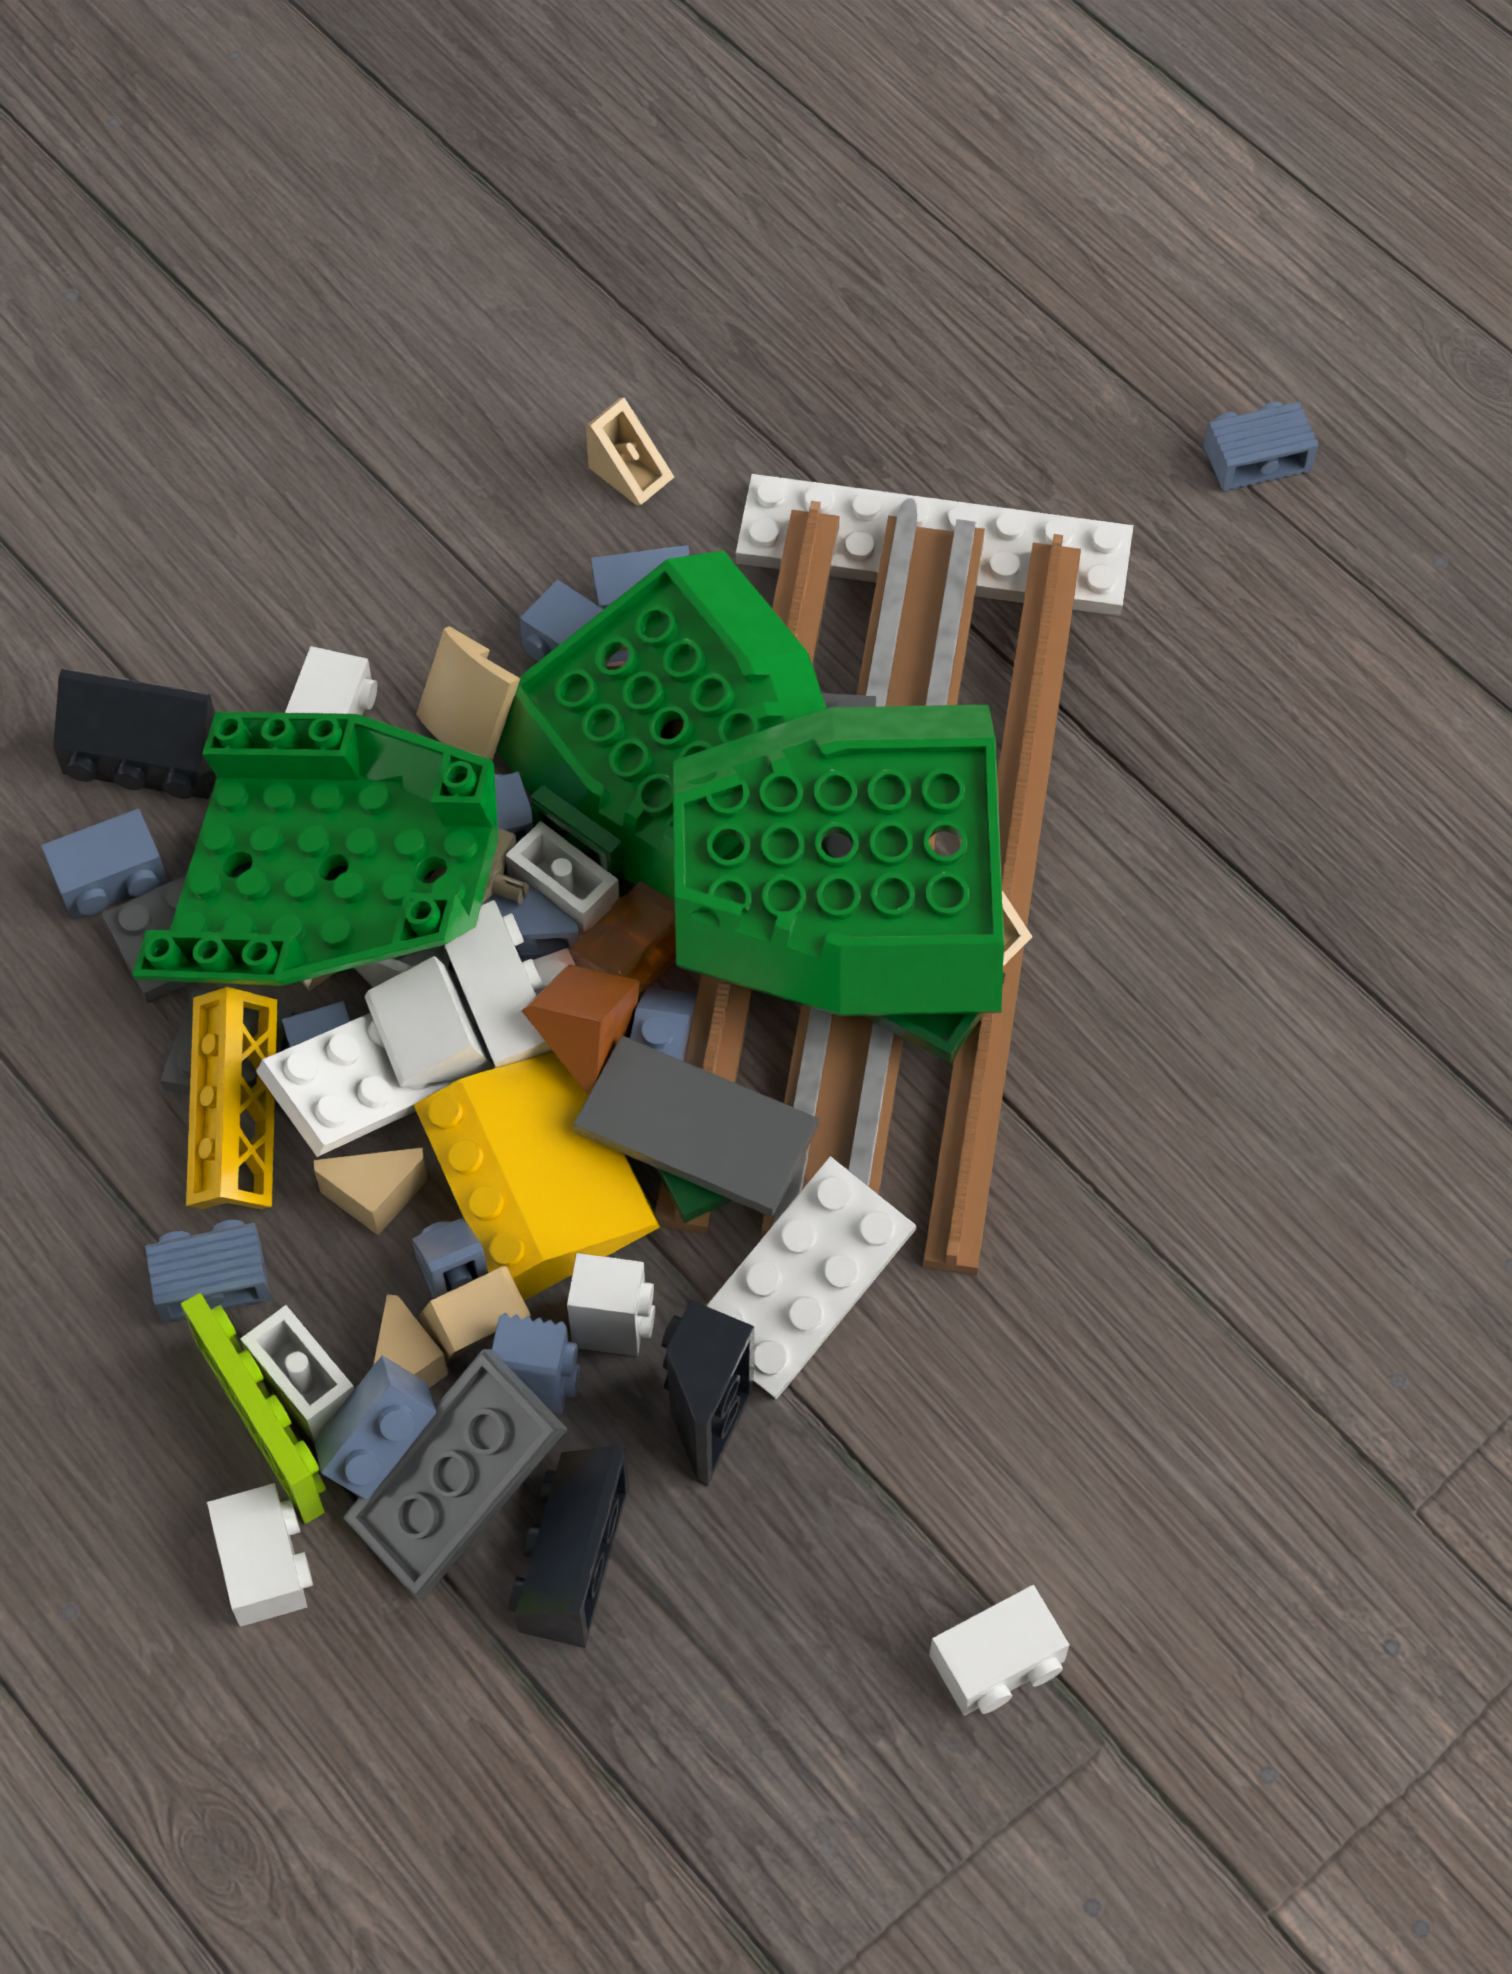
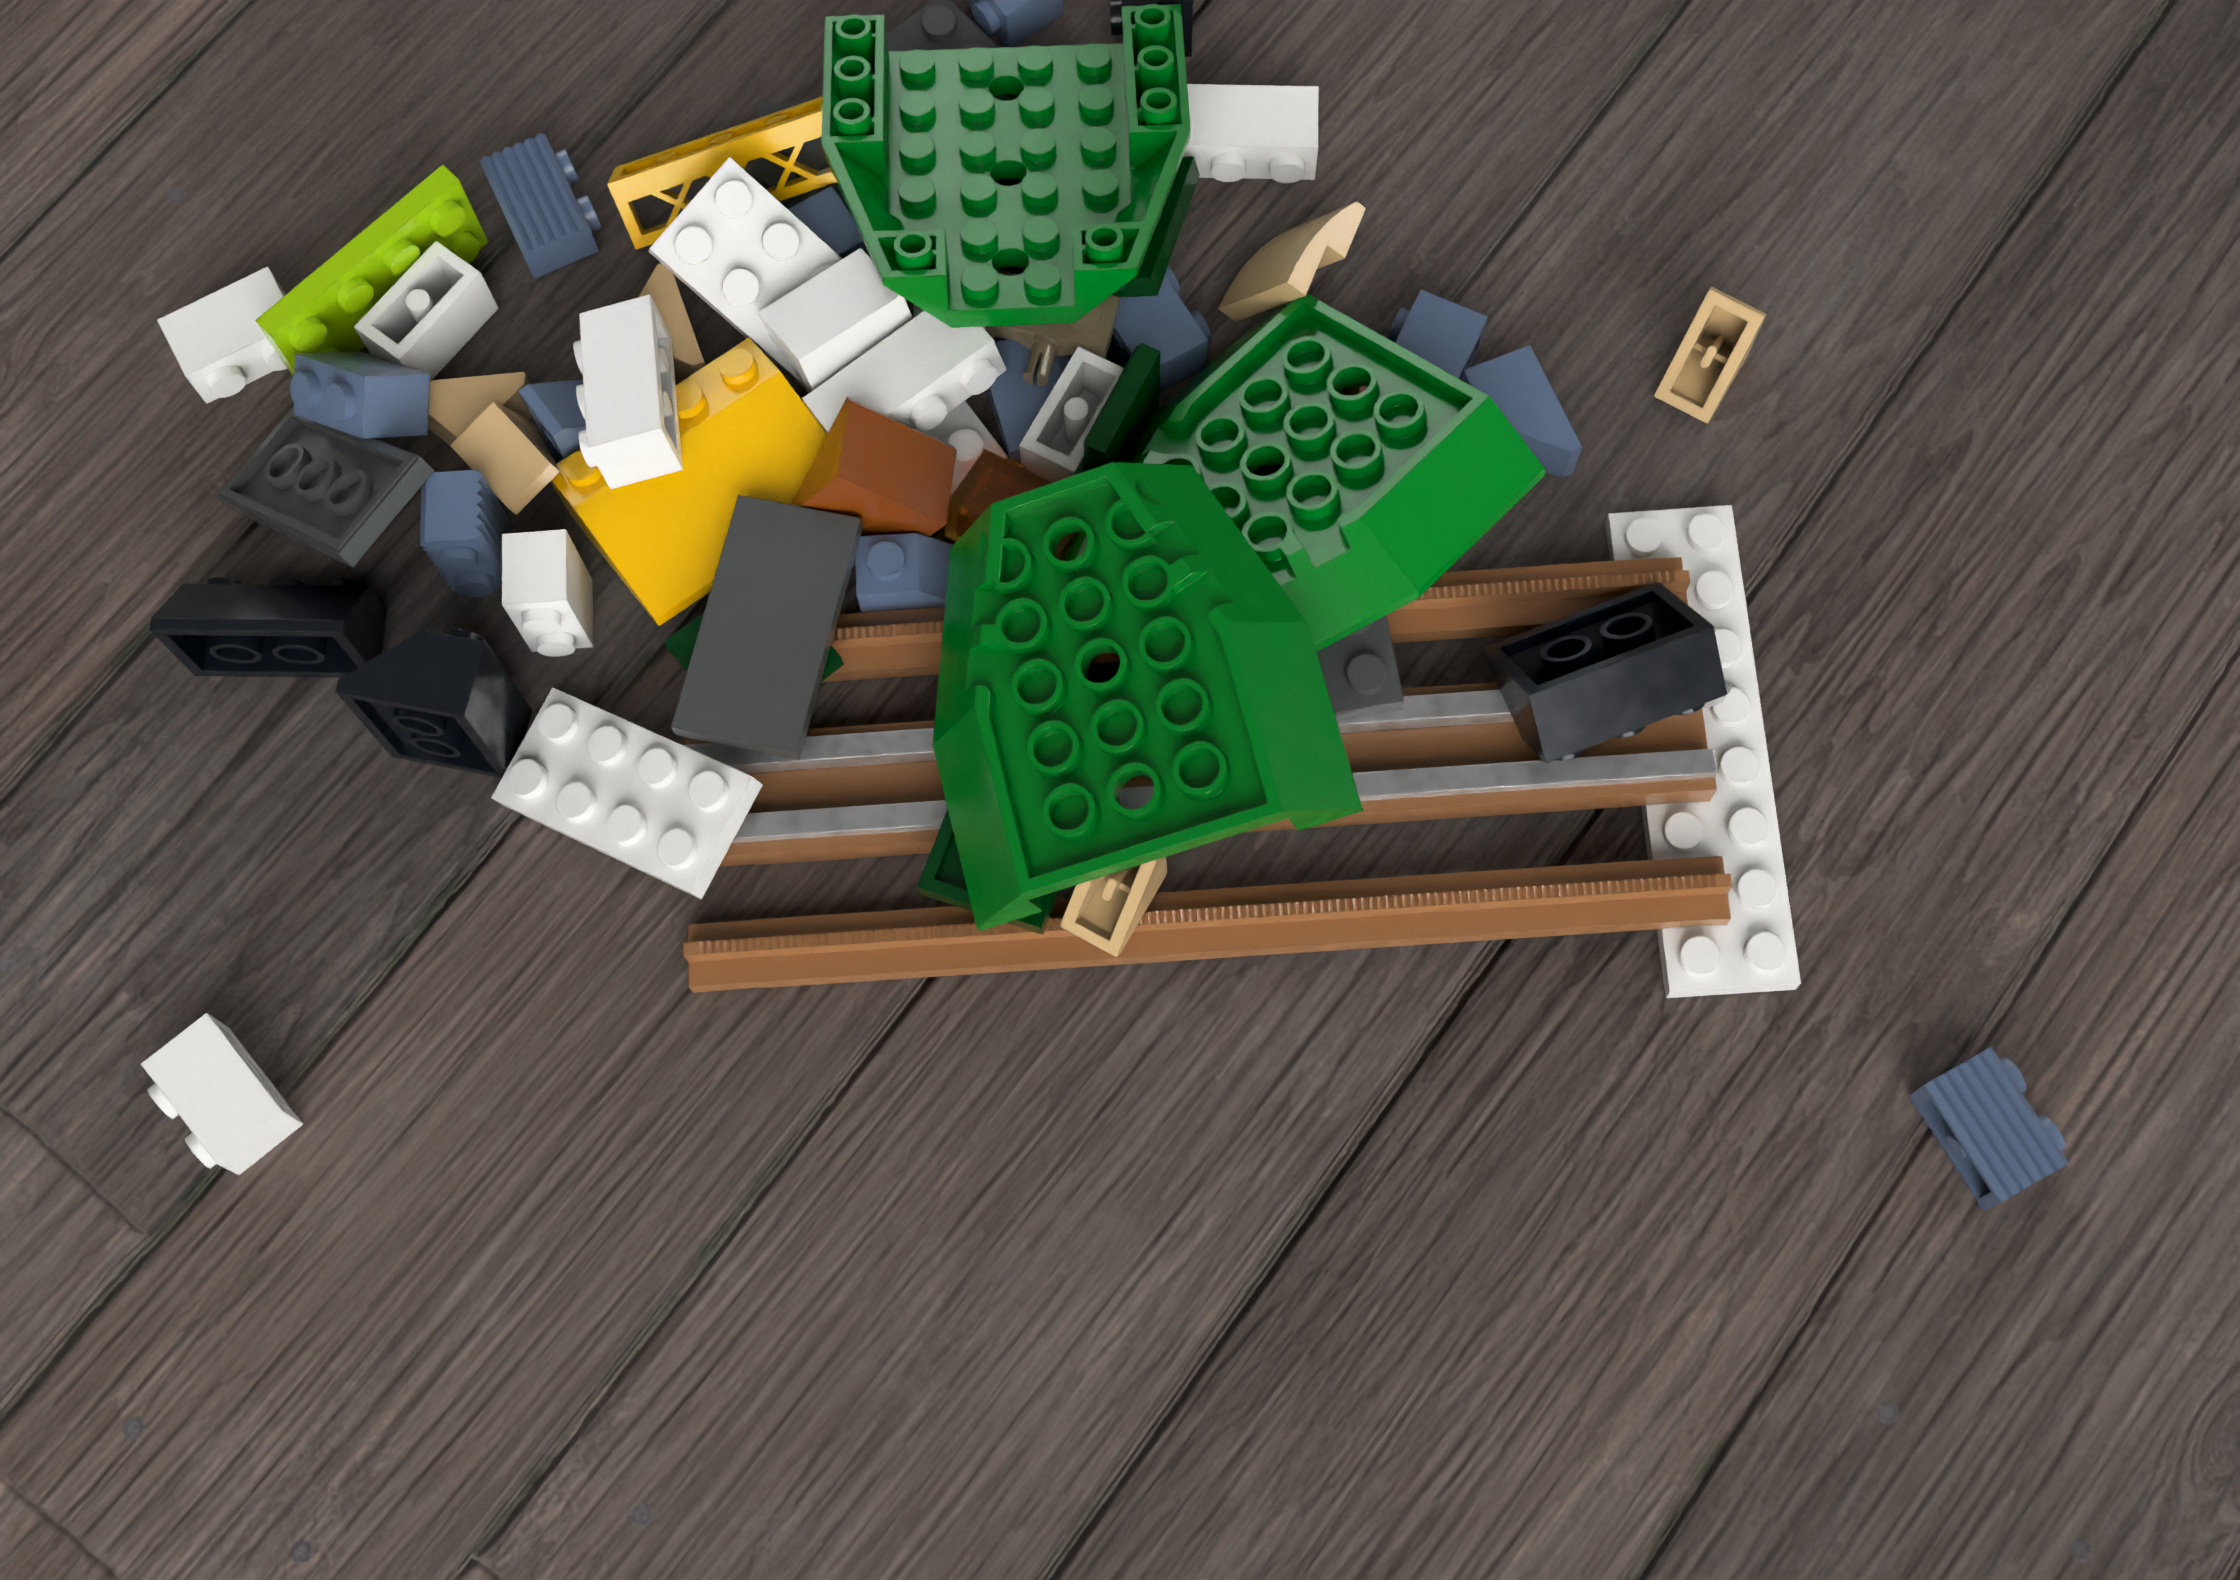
camera: 80 degrees right, 10 degrees up
(456, 1186) = (628, 393): none -> white brick
(886, 561) = (1607, 671): none -> black slope

